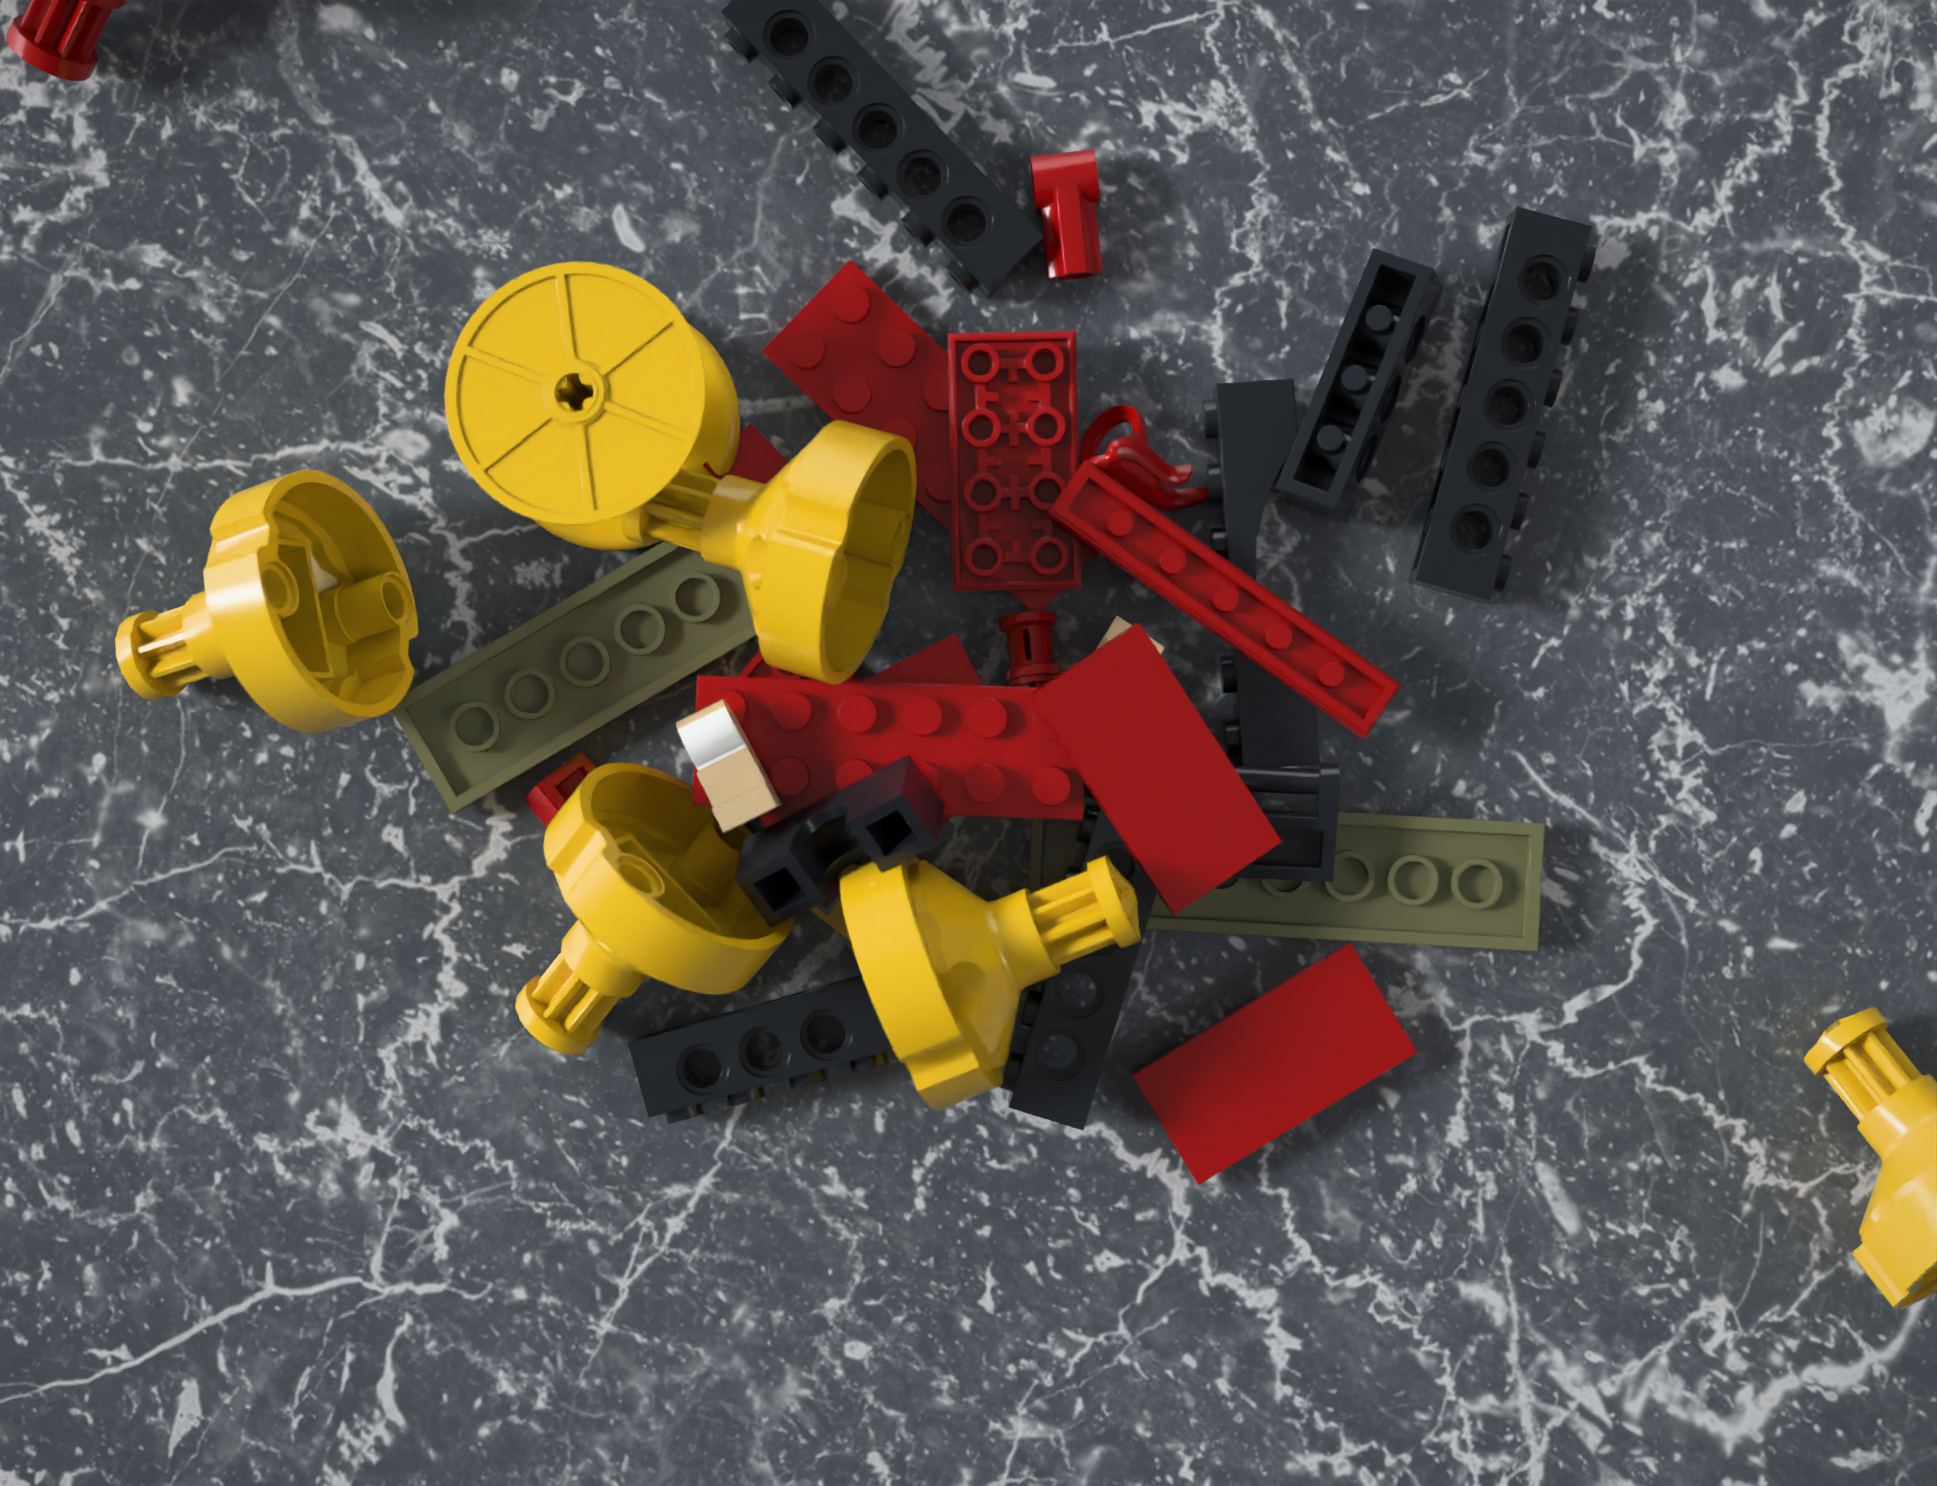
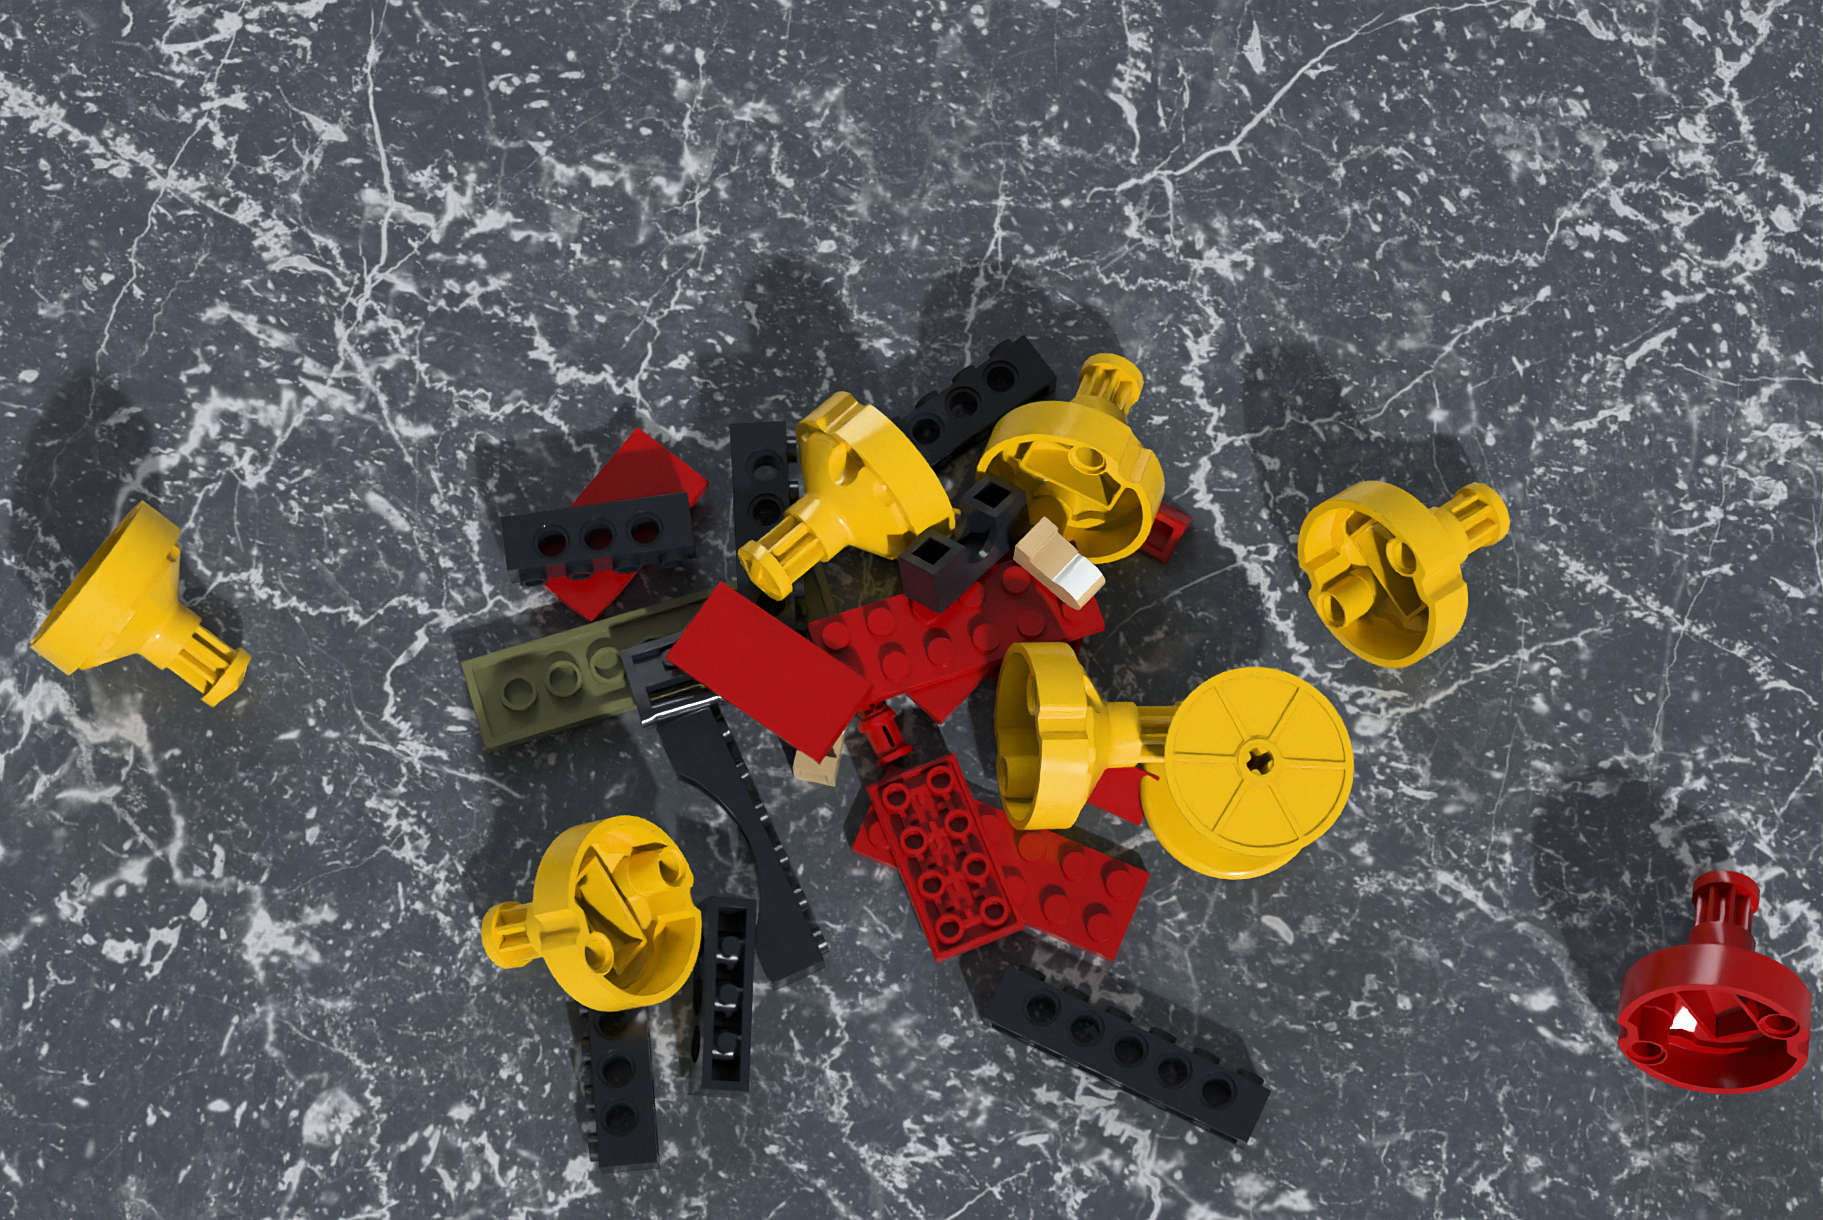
camera: 160 degrees right, 15 degrees down
(573, 670) = (1196, 605): olive plate -> none
(1067, 199) = (977, 1057): red piece -> none
(1136, 464) = (860, 882): red piece -> none
(1224, 599) = (764, 810): red tile -> none
(1400, 1081) = (575, 526): none -> black brick
(1482, 515) = (605, 916): none -> yellow piece

